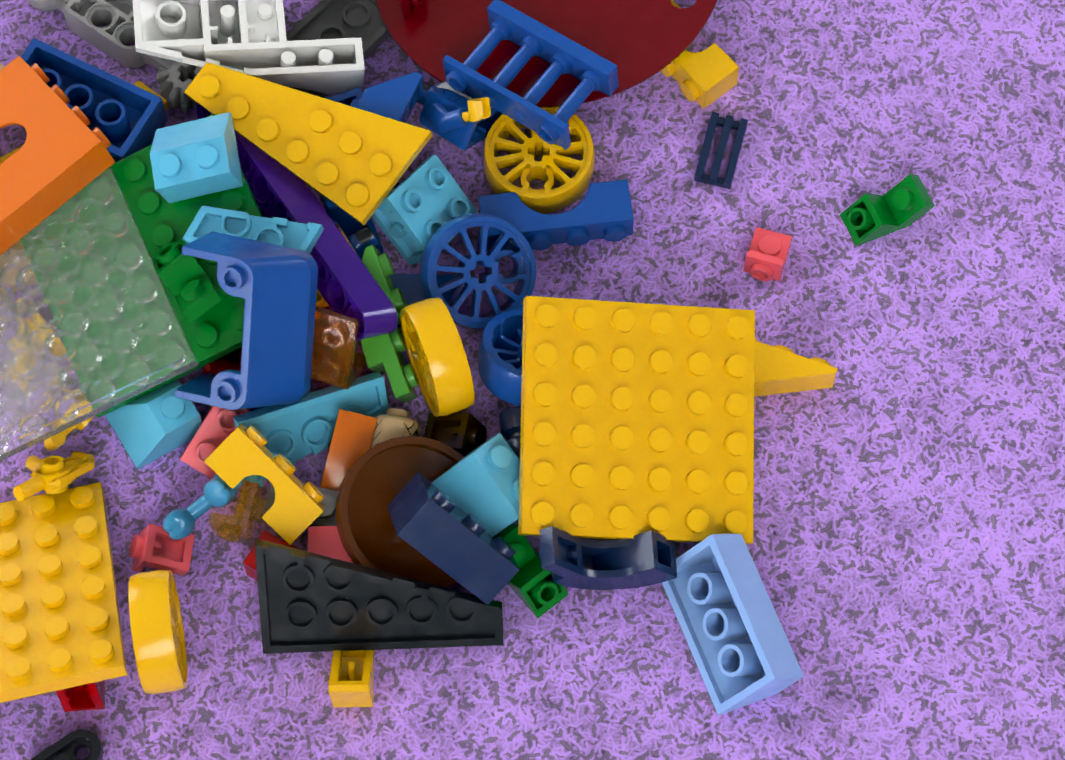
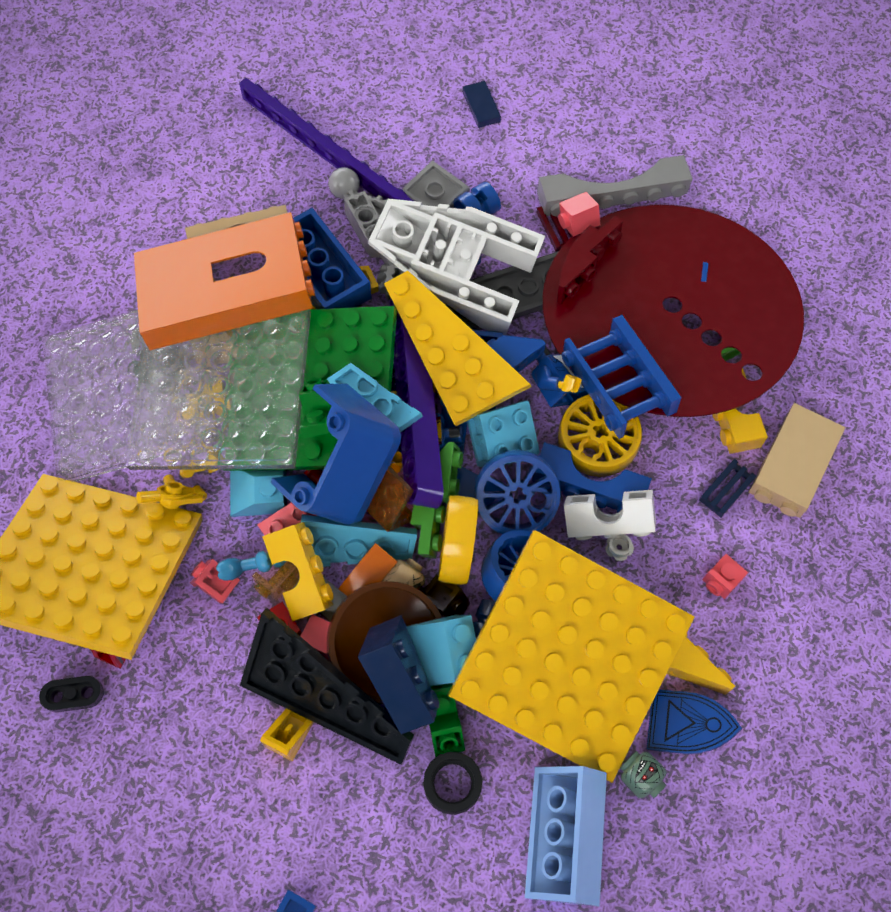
camera: 25 degrees right, 0 degrees up
(157, 632) = (172, 638): yellow piece -> none
(195, 158) = (364, 329): medium azure slope -> none
(573, 603) = (429, 779): none -> black tyre
(575, 264) = (587, 520): none -> white arch
(607, 564) = (500, 744): dark blue arch -> none
(628, 269) = (626, 544): none -> white plate
(783, 517) = (643, 775): none -> sand green head
(785, 79) = (796, 461): none -> tan brick
(805, 436) = (688, 723): none -> blue shield
(883, 214) = (825, 588): green slope -> none

